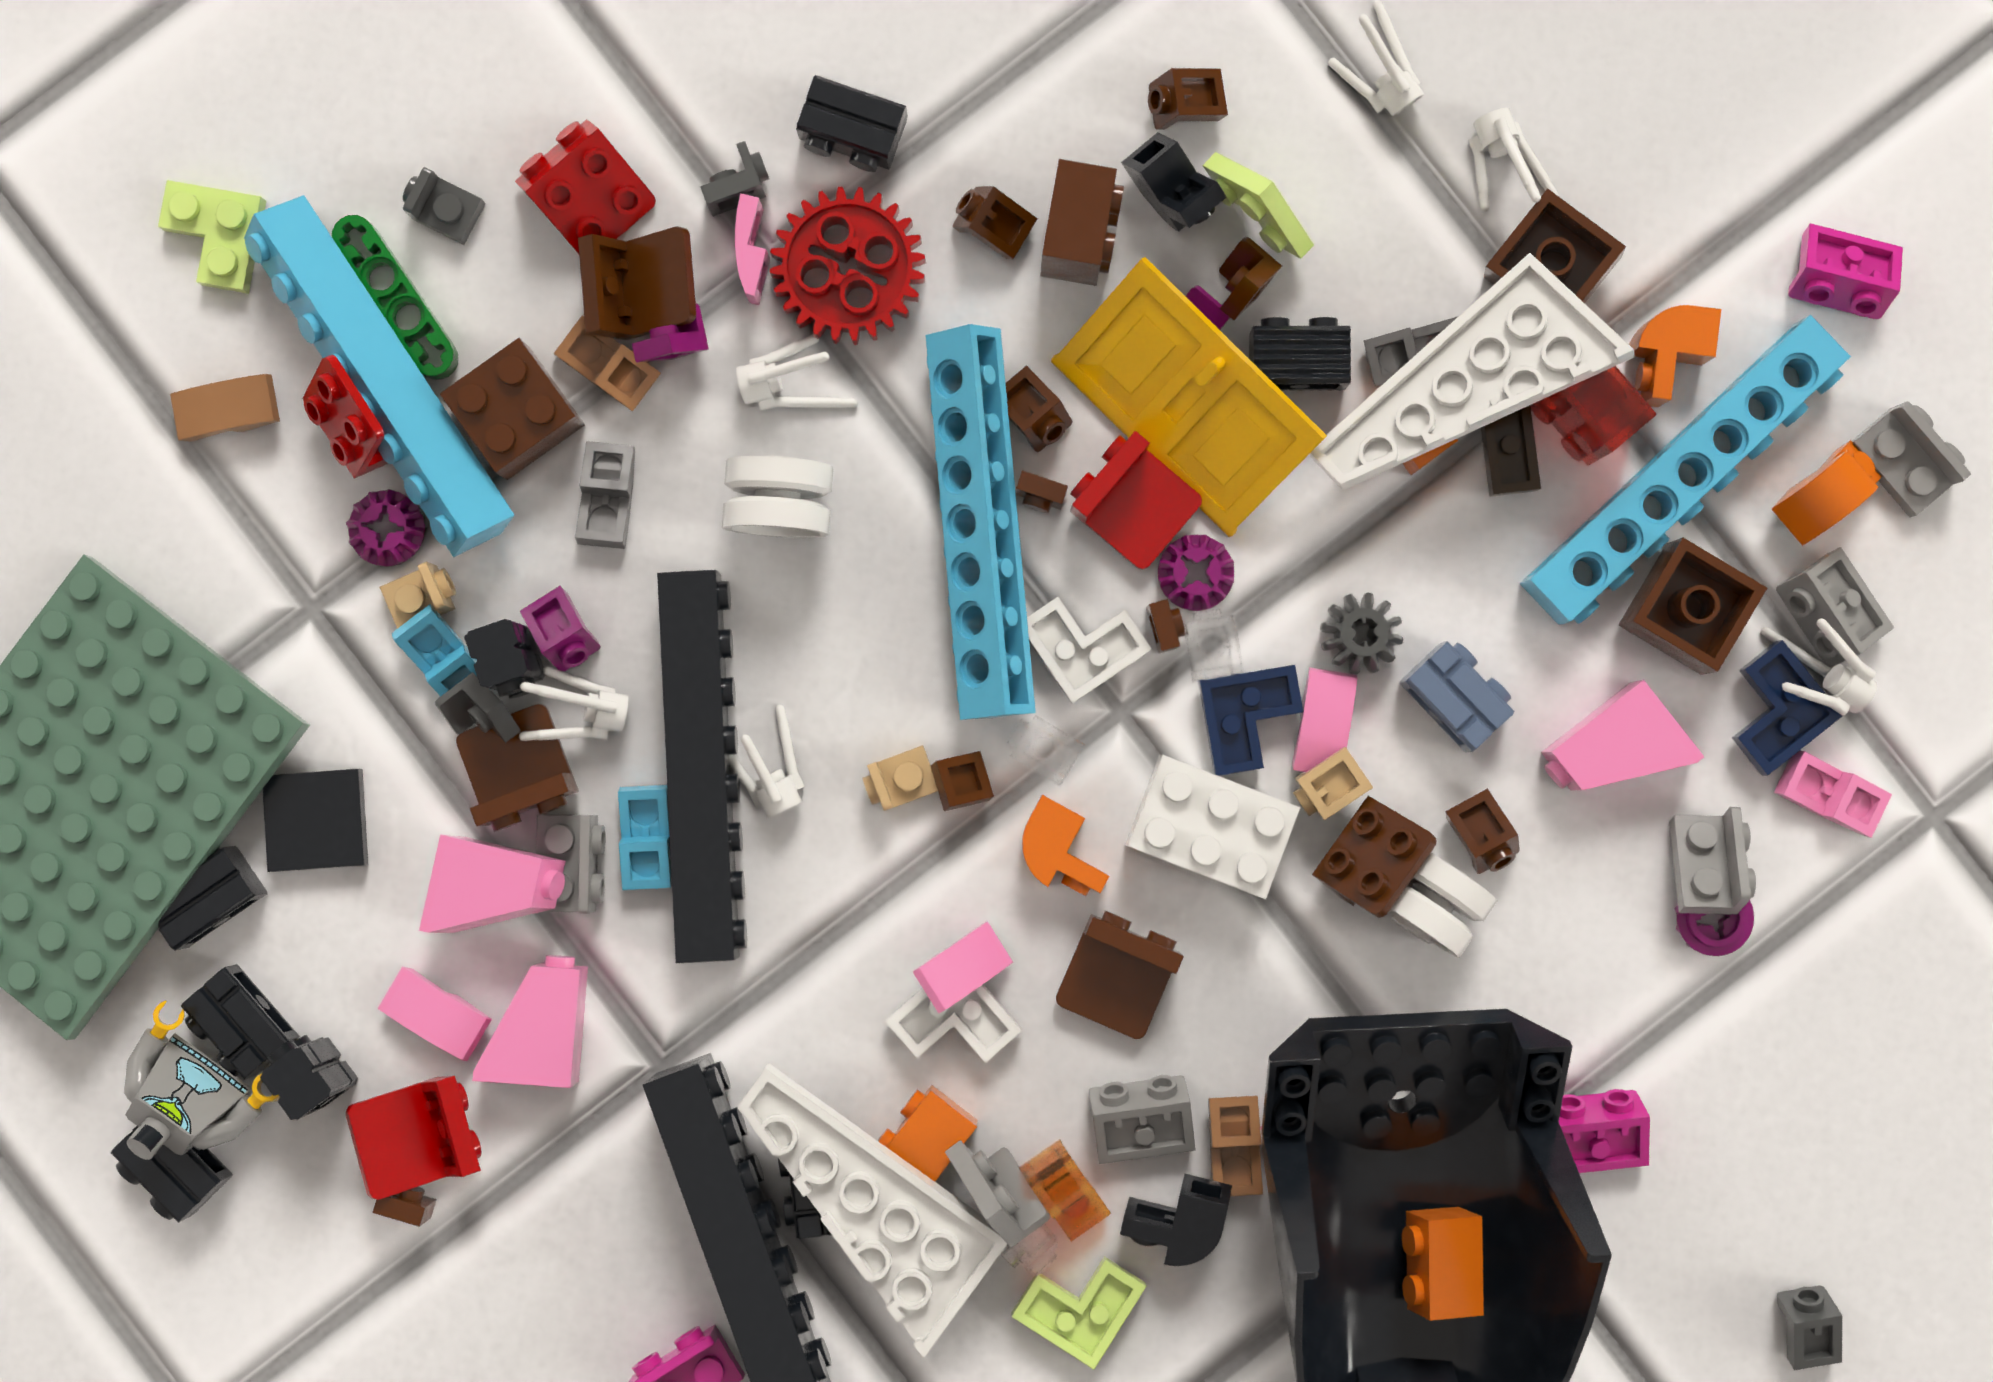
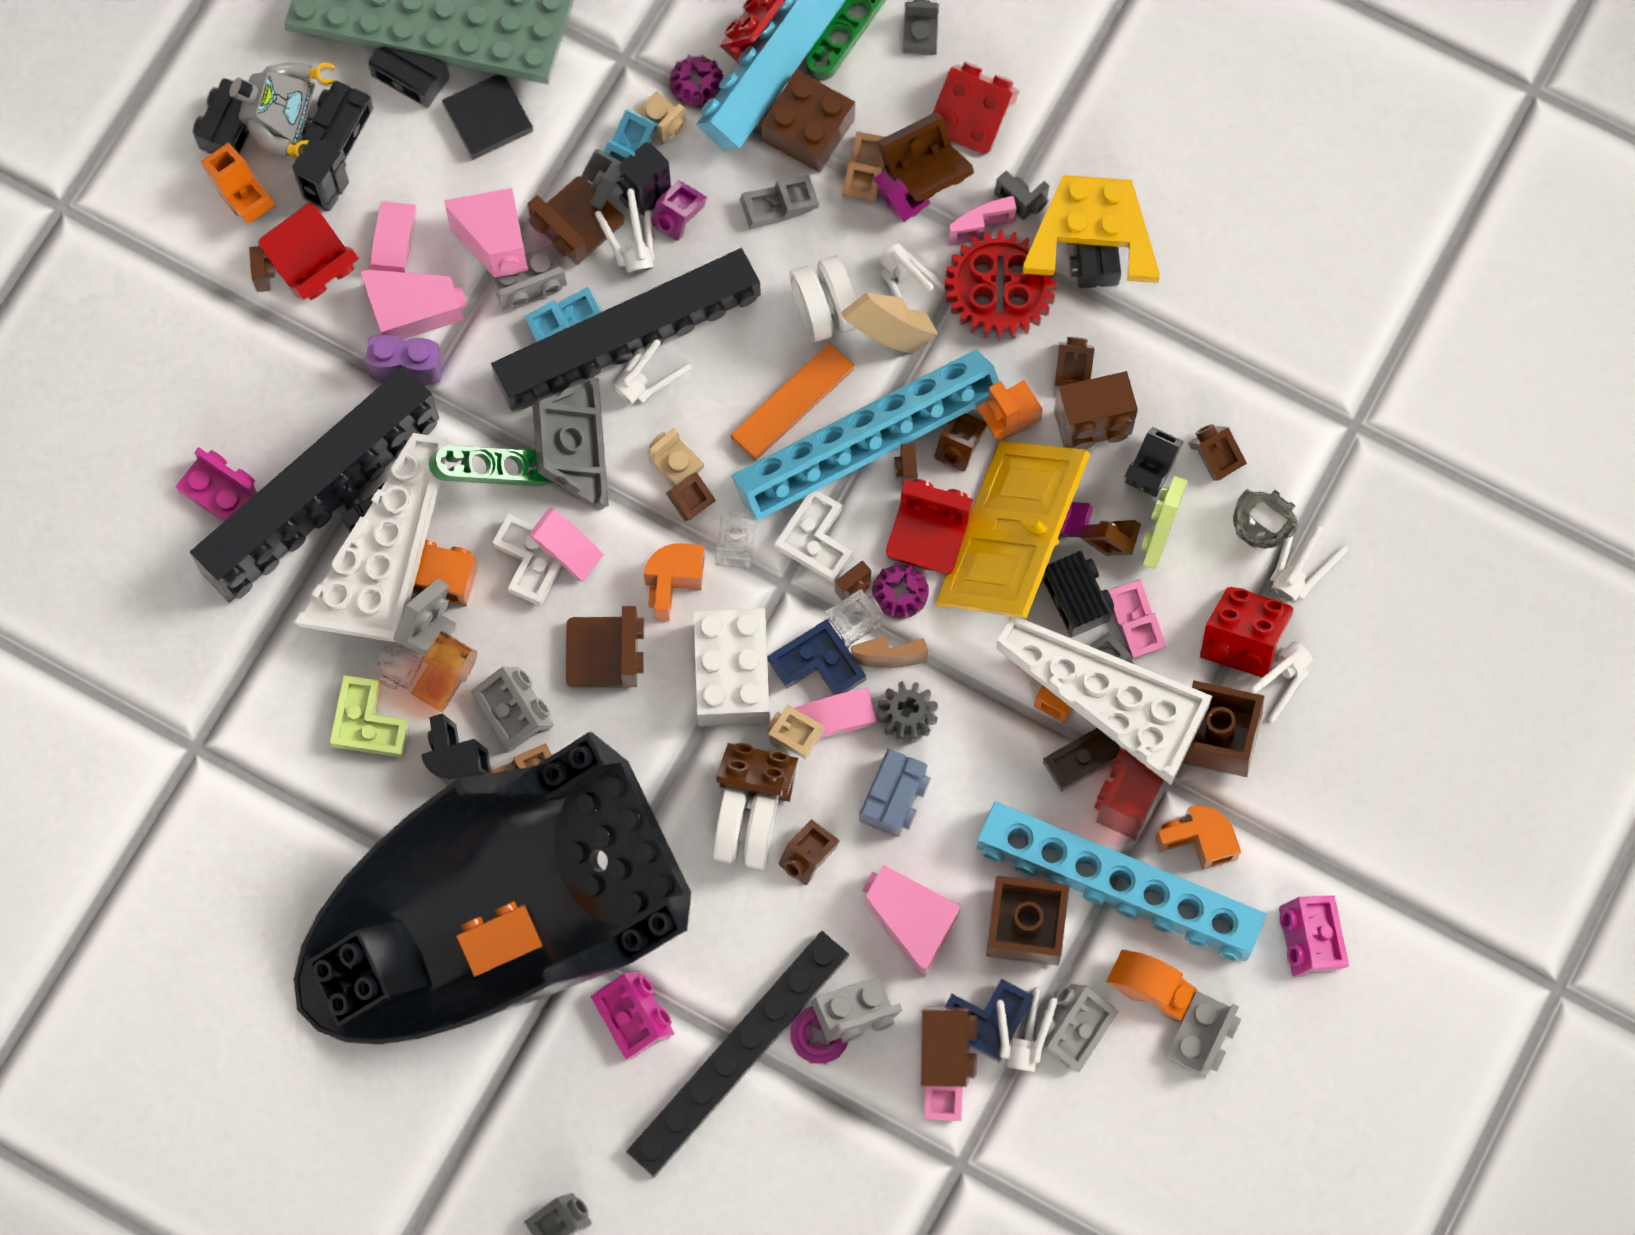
camera: 65 degrees right, 15 degrees down
(273, 1191) = (237, 184): none -> orange brick
(612, 1083) = (419, 355): none -> medium lavender brick
(814, 101) = (1094, 214): none -> yellow wing
(822, 1016) = (494, 461): none -> green beam
(824, 900) = (572, 442): none -> dark grey wing
(851, 427) = (890, 322): none -> tan slope
(886, 596) = (792, 401): none -> orange tile
(1026, 329) = (1010, 409): none -> orange brick
(1271, 634) = (878, 654): none -> medium nougat slope
(1319, 100) = (1253, 532): none -> clear smoke helmet
(1359, 300) = (1135, 619): none -> bright pink slope
(1438, 169) = (1245, 631): none -> red bracket
(1693, 1024) = (737, 1054): none -> black plate
(1823, 775) = (946, 1046): none -> reddish brown brick

